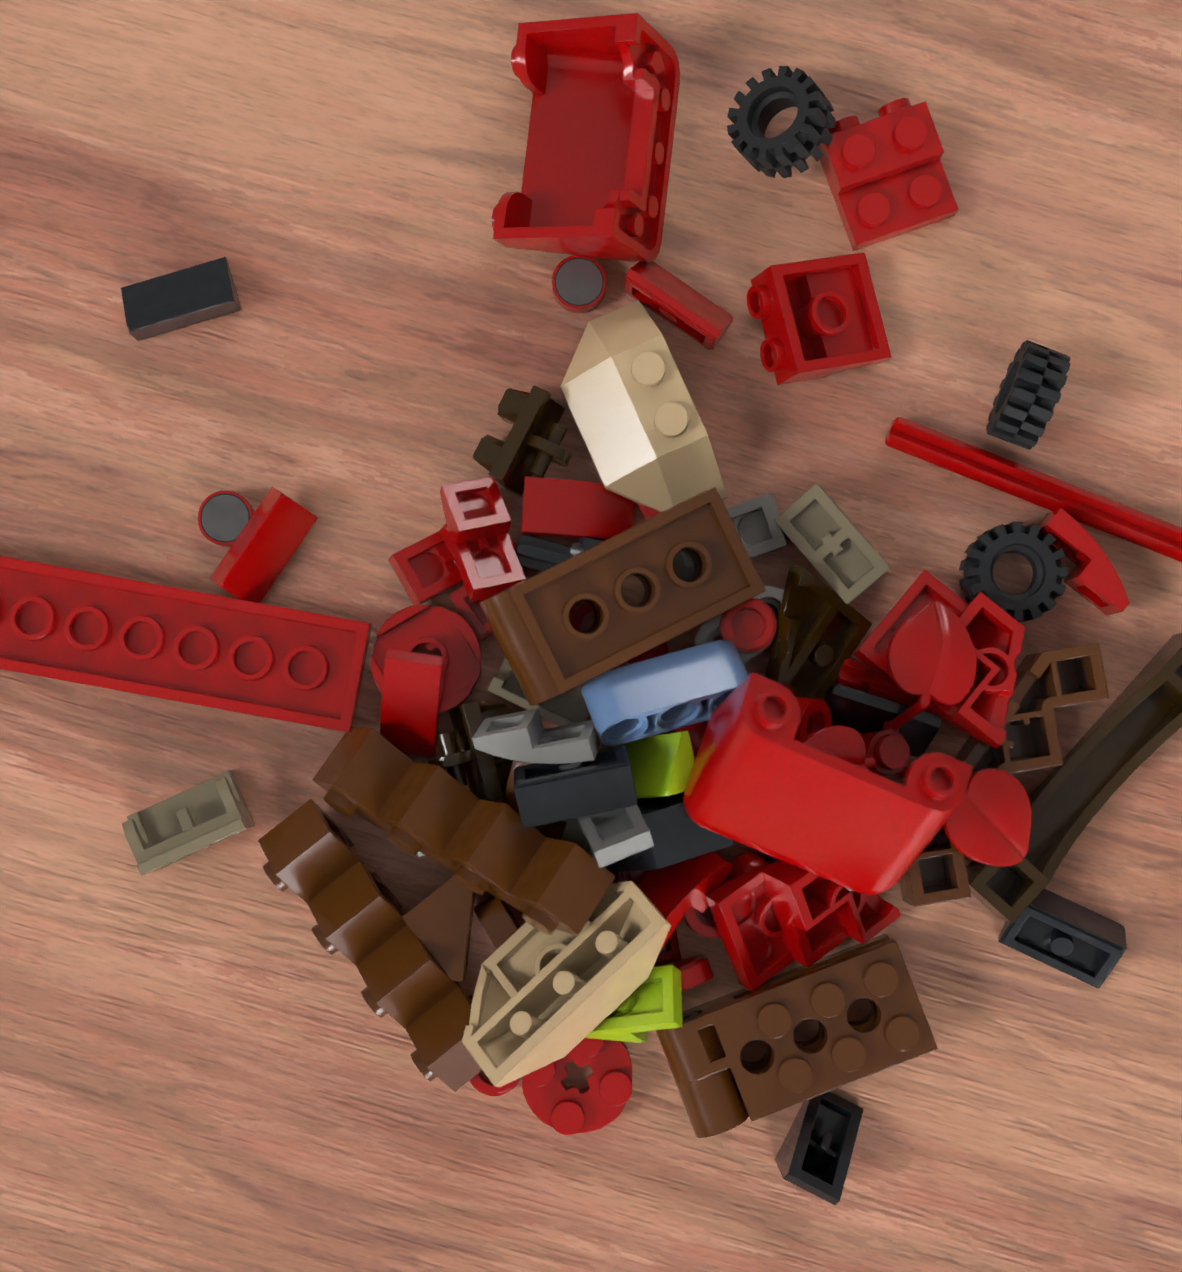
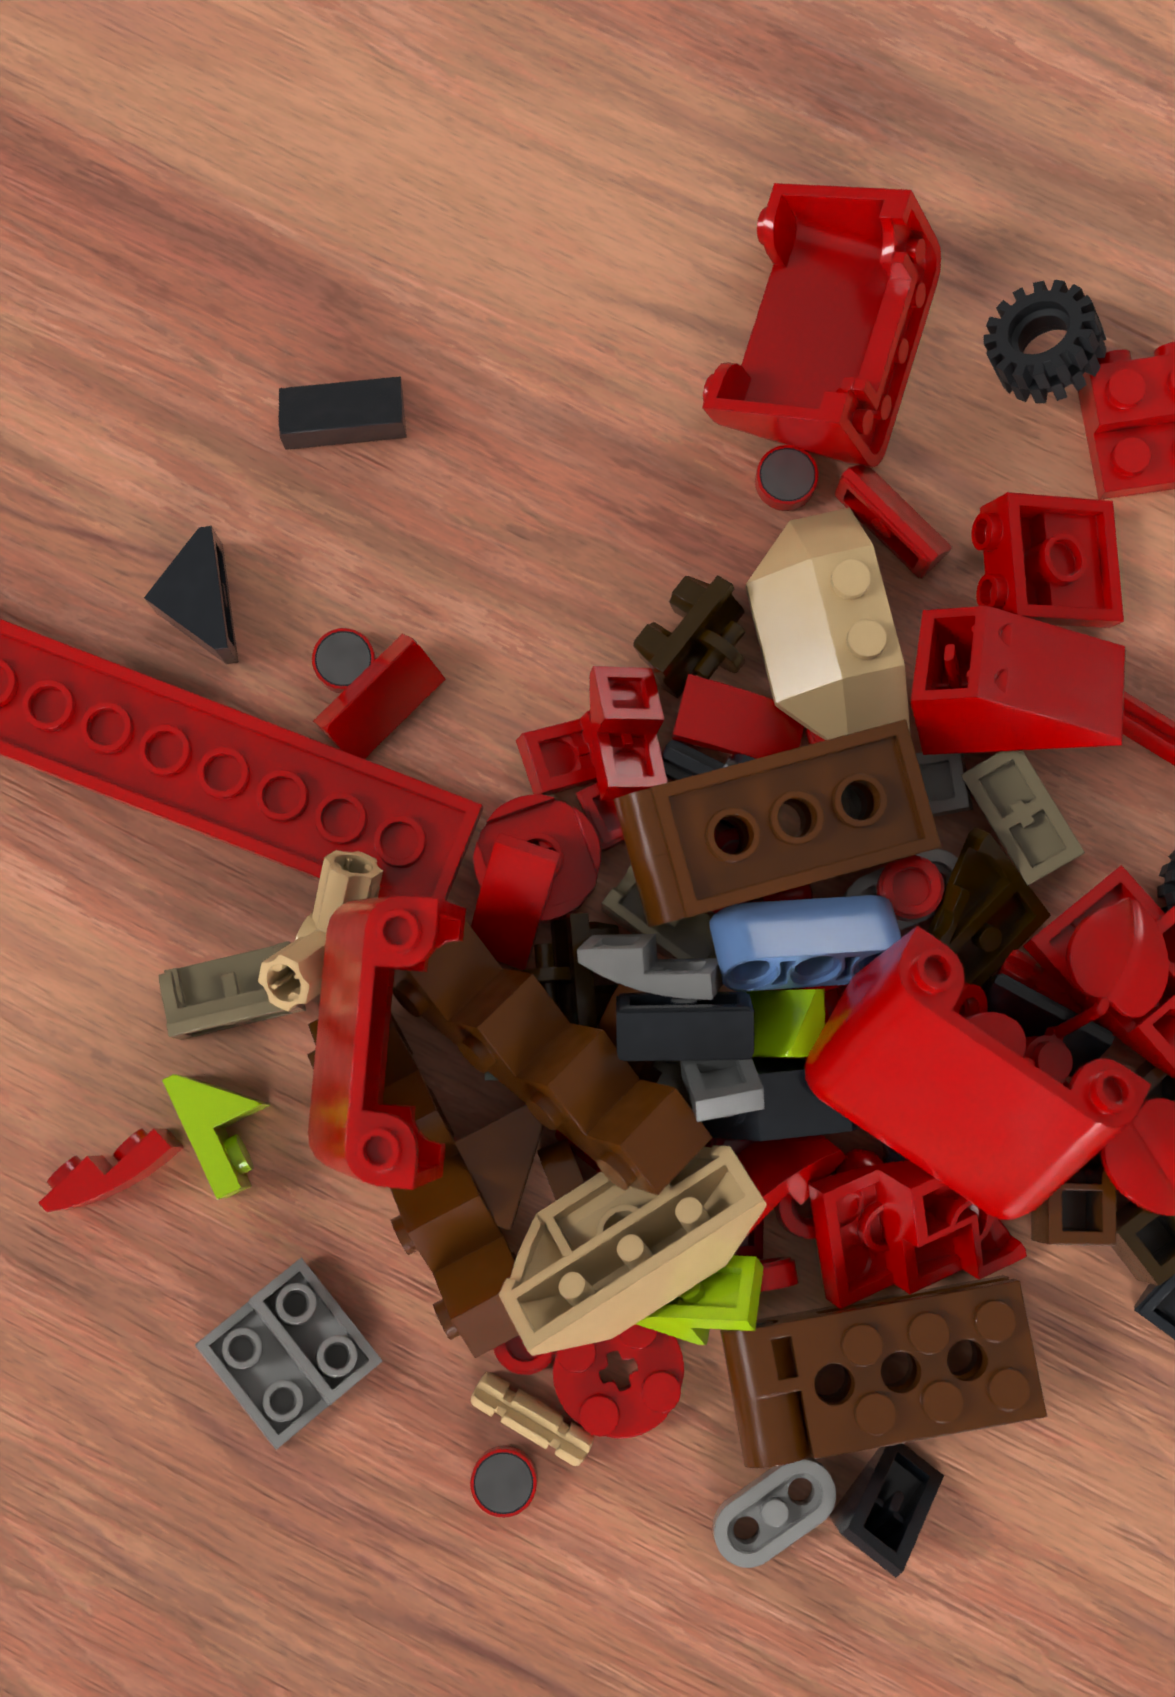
camera: 15 degrees right, 5 degrees down
(87, 486) = (197, 597): none -> black slope
(105, 1003) = (95, 1179): none -> red slope
(186, 933) = (205, 1114): none -> lime slope
(264, 765) = (296, 971): none -> tan piece
(298, 1117) = (288, 1353): none -> light grey slope
(309, 926) = (347, 1115): none -> red windscreen
(499, 1186) = (503, 1481): none -> flat silver tile
(512, 1130) = (532, 1418): none -> tan axle
(731, 1168) = (778, 1516): none -> light grey plate
(804, 434) = (1013, 684): none -> red slope

